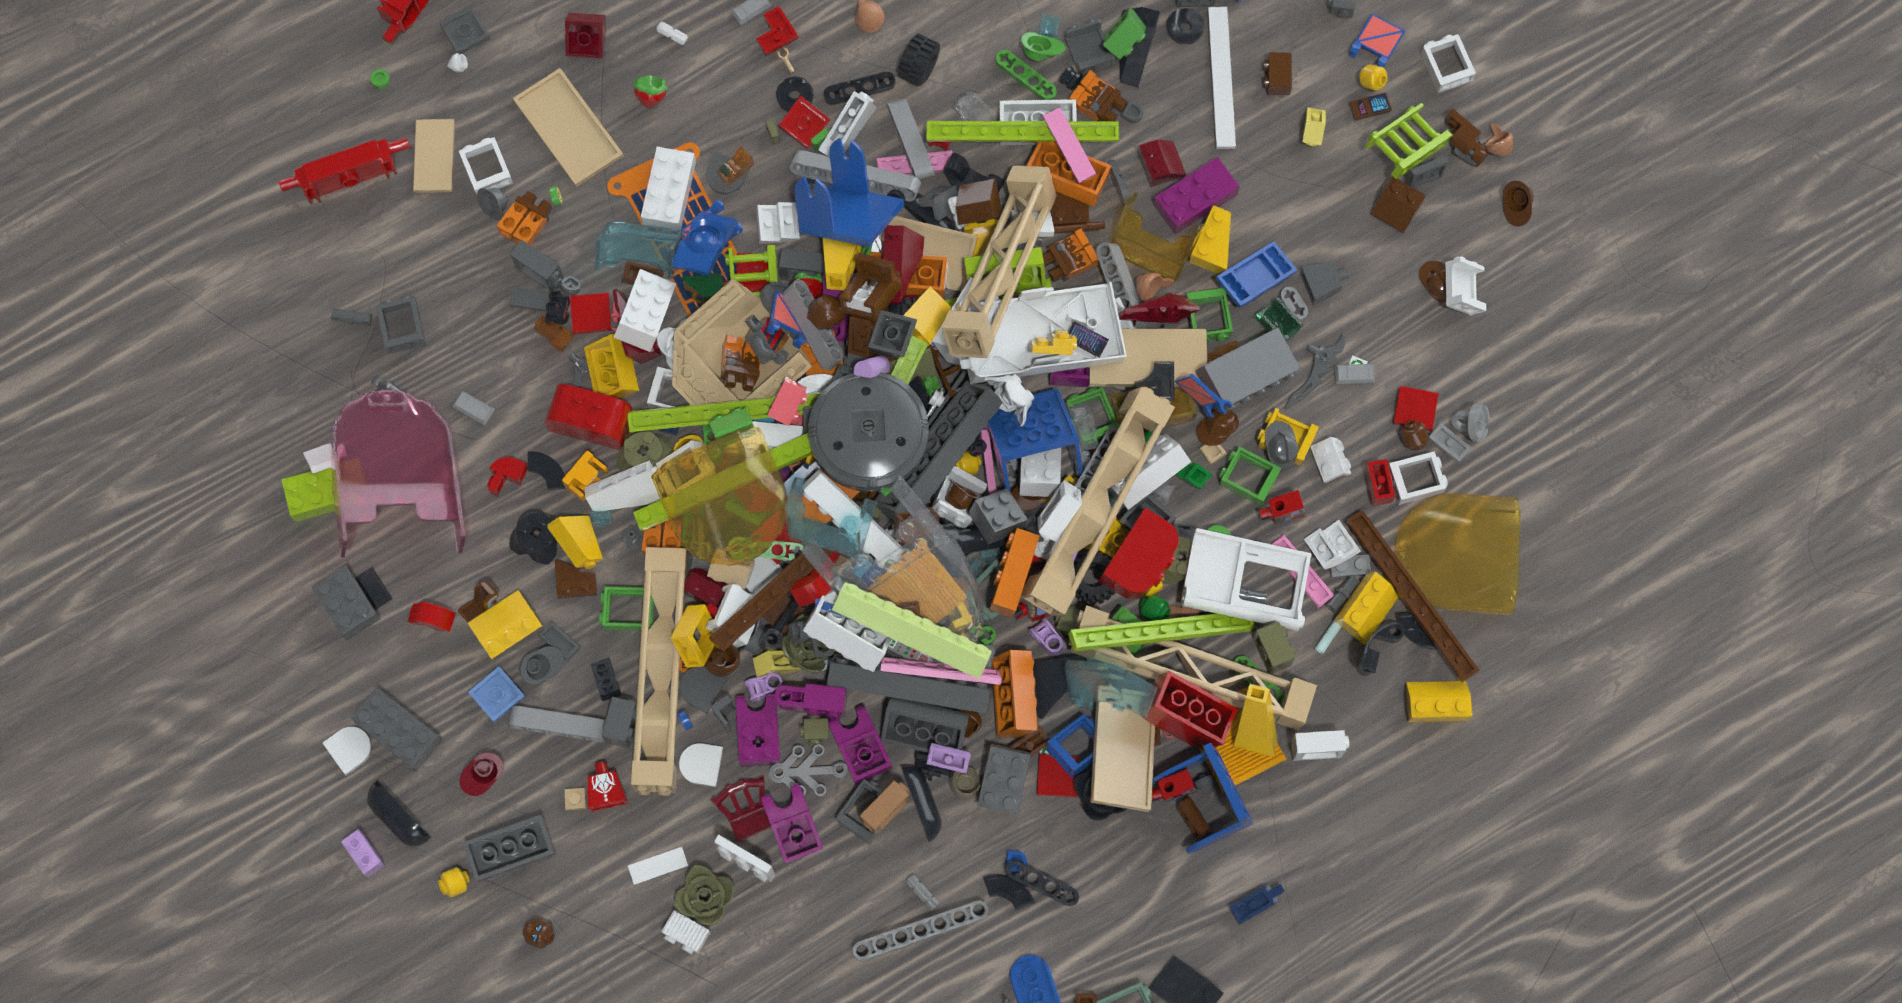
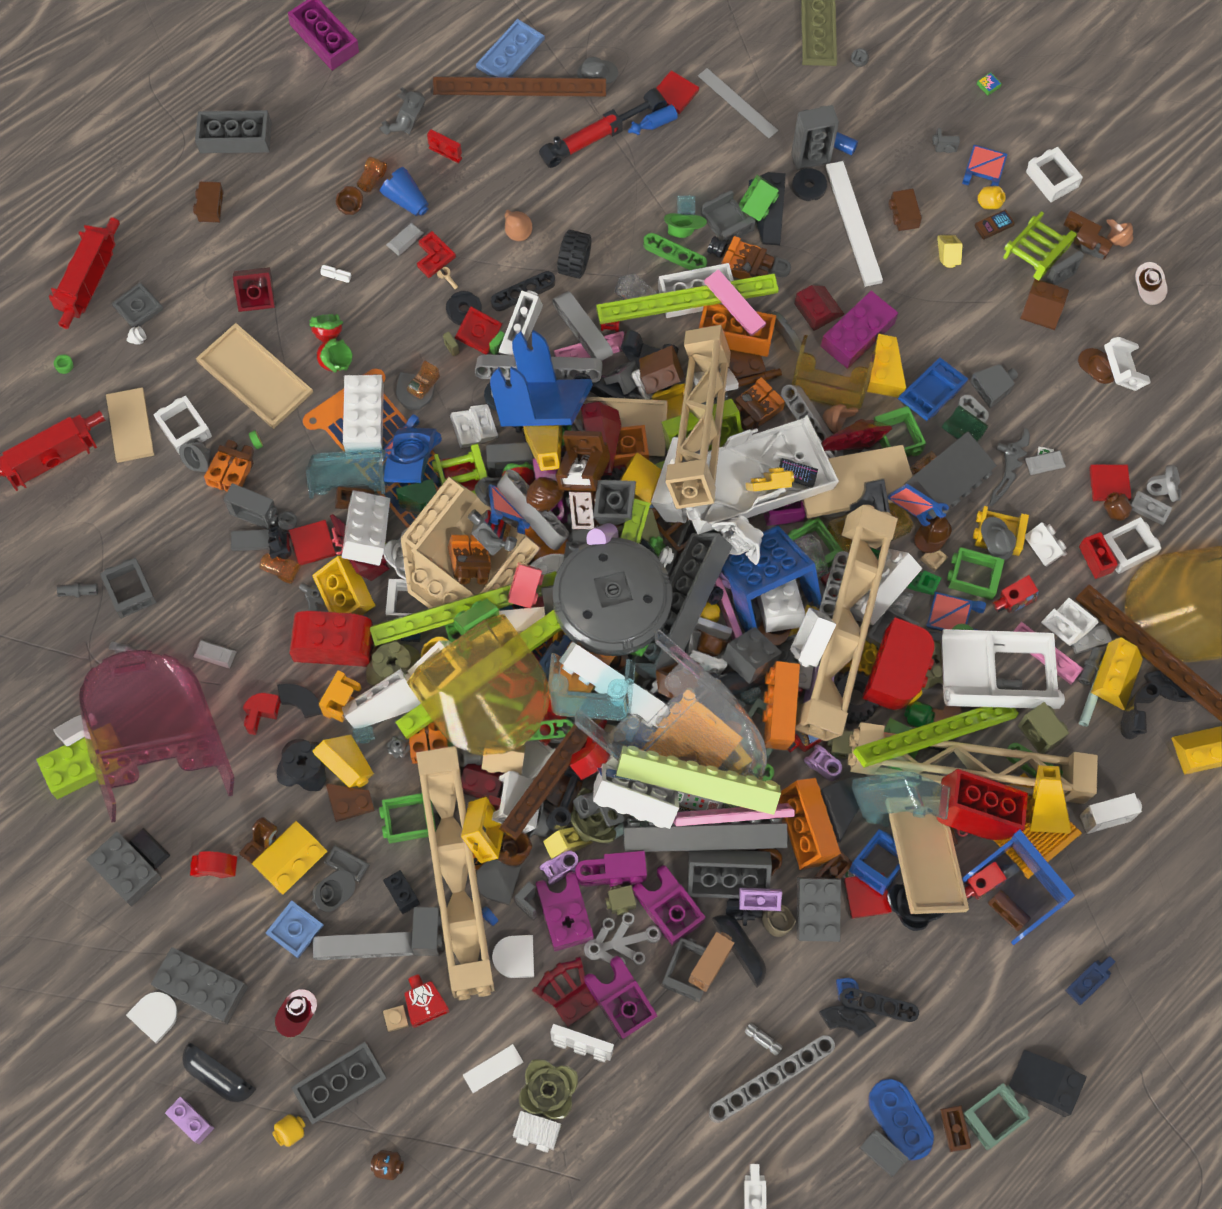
camera: 15 degrees left, 5 degrees down
(652, 122) = (334, 355): none -> bright green hair
(1216, 510) = (951, 610): none -> coral flag

